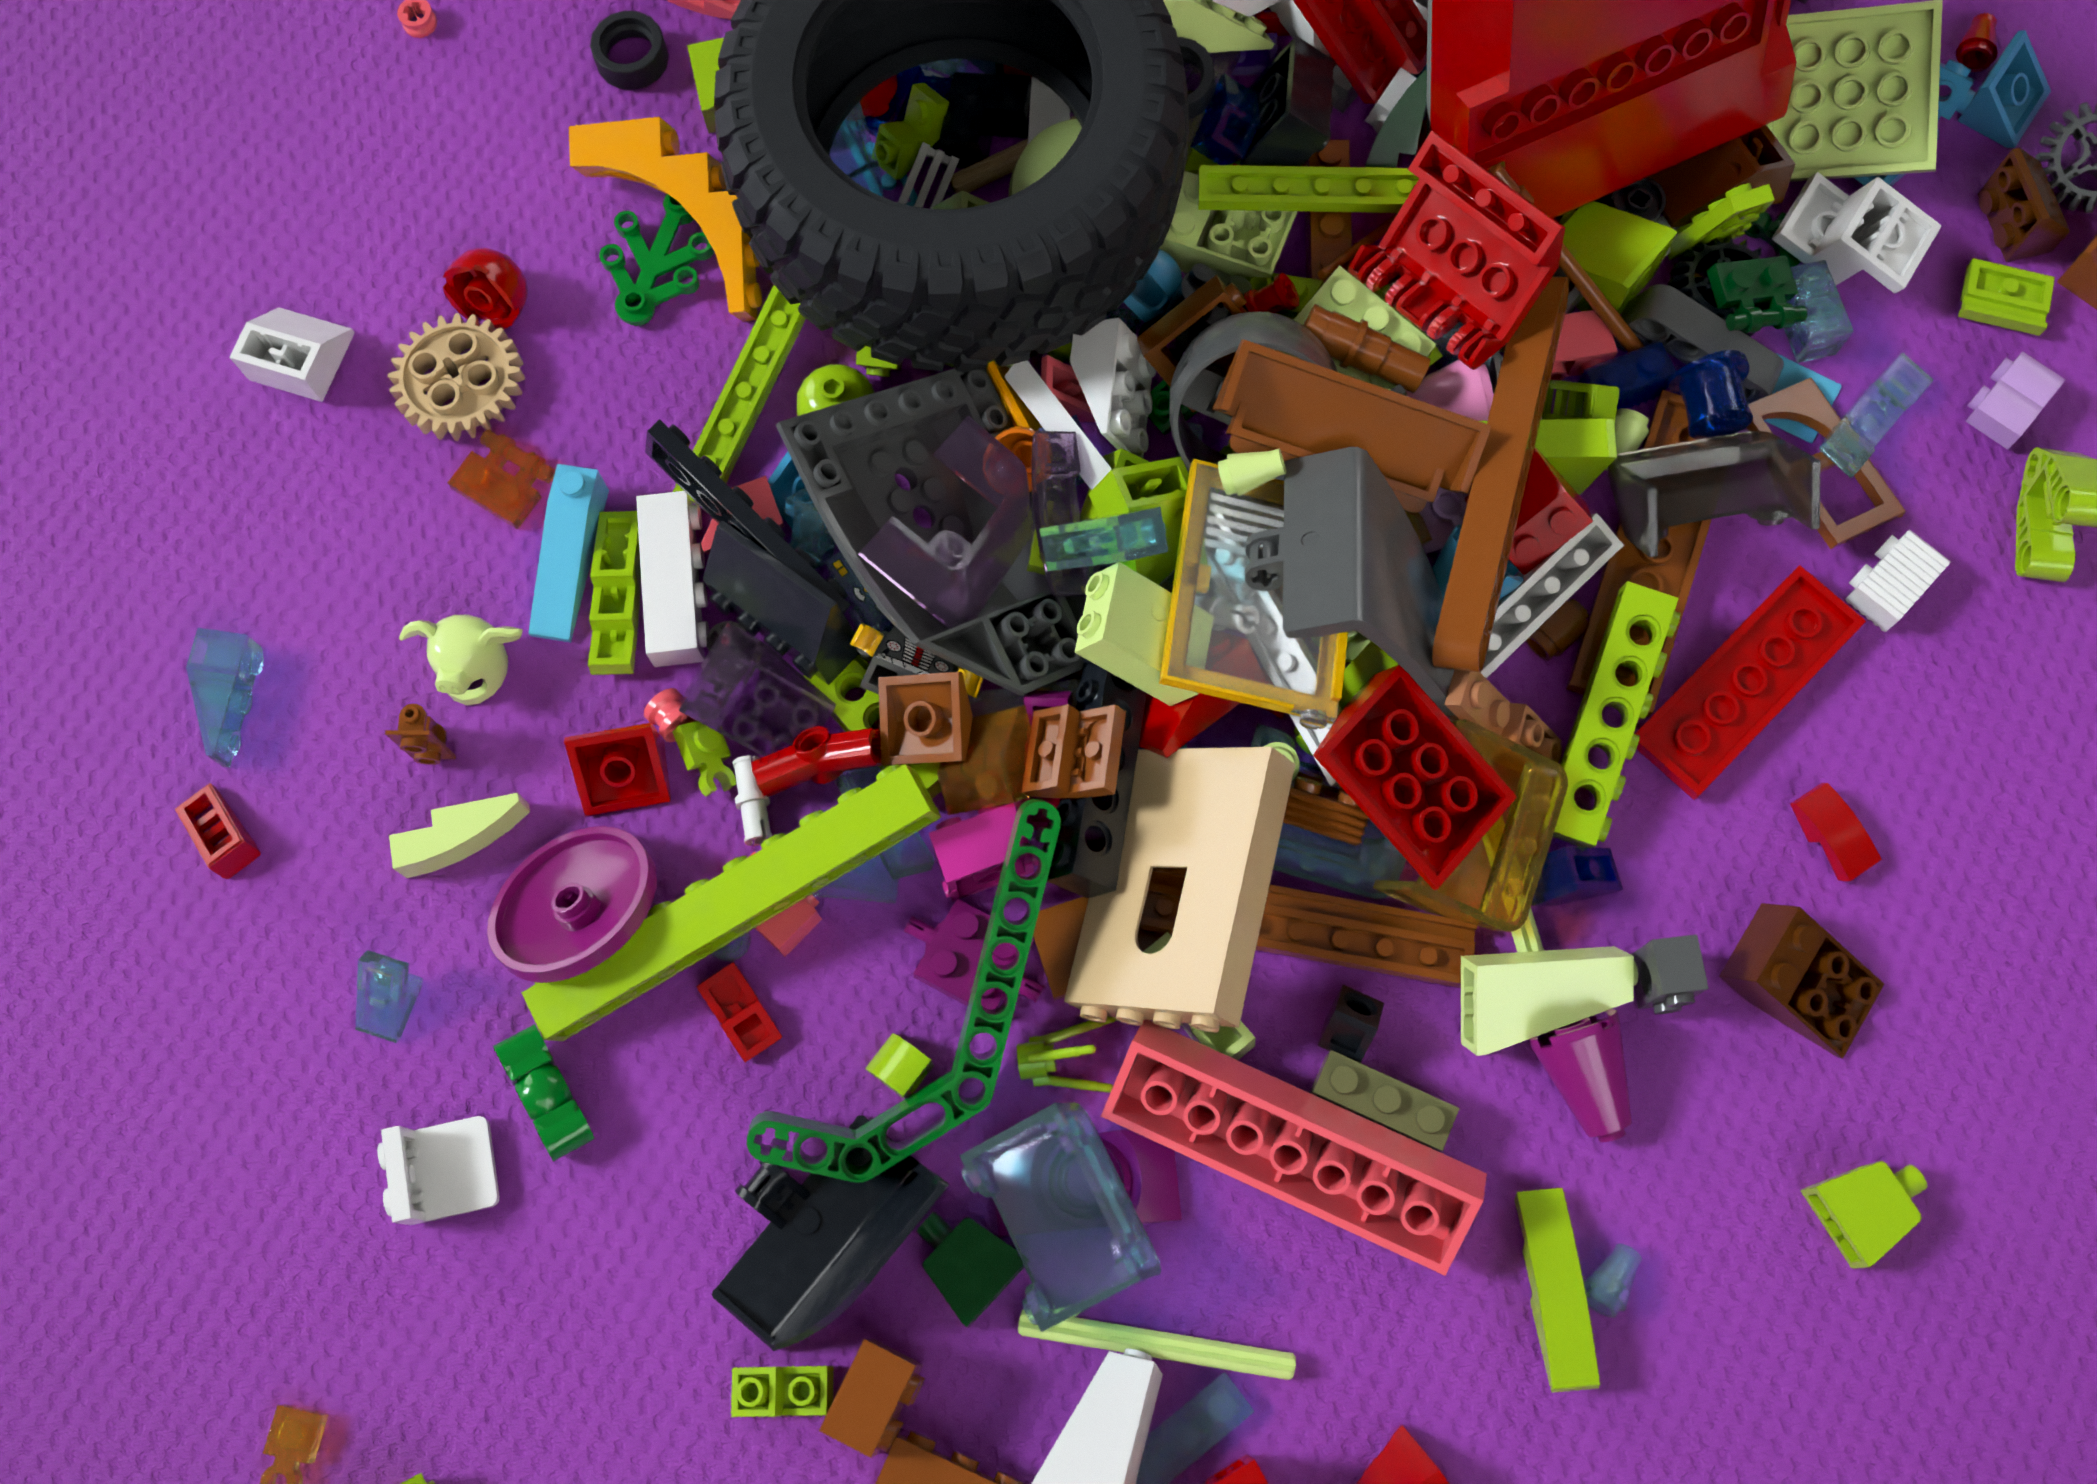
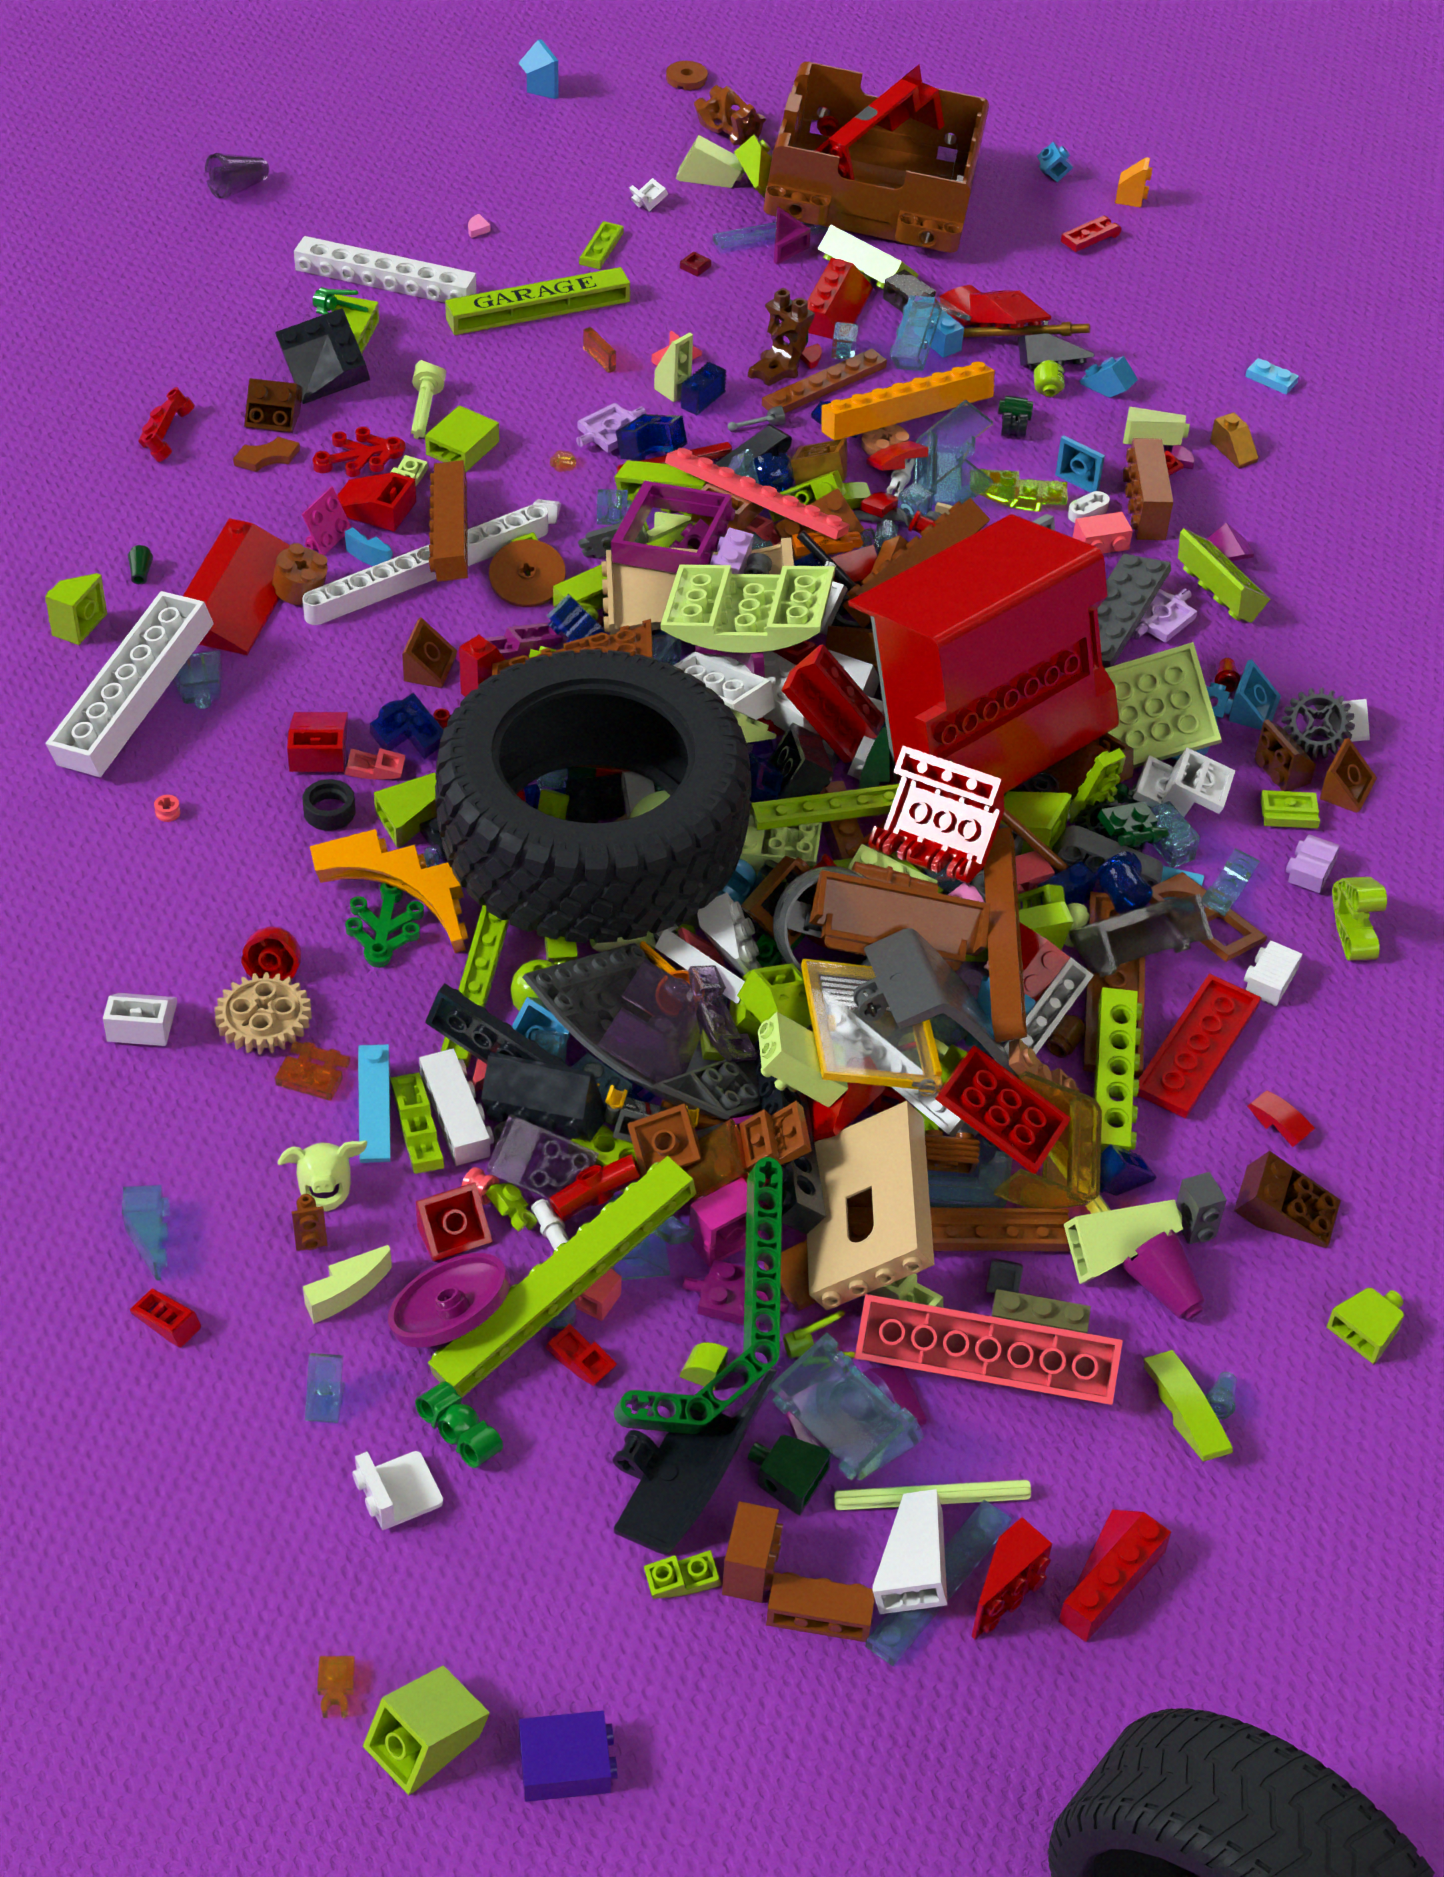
camera: 20 degrees left, 25 degrees down
(1104, 539) = (746, 1014): clear light blue brick -> none
(1250, 470) = (843, 955): yellowish green cone -> none

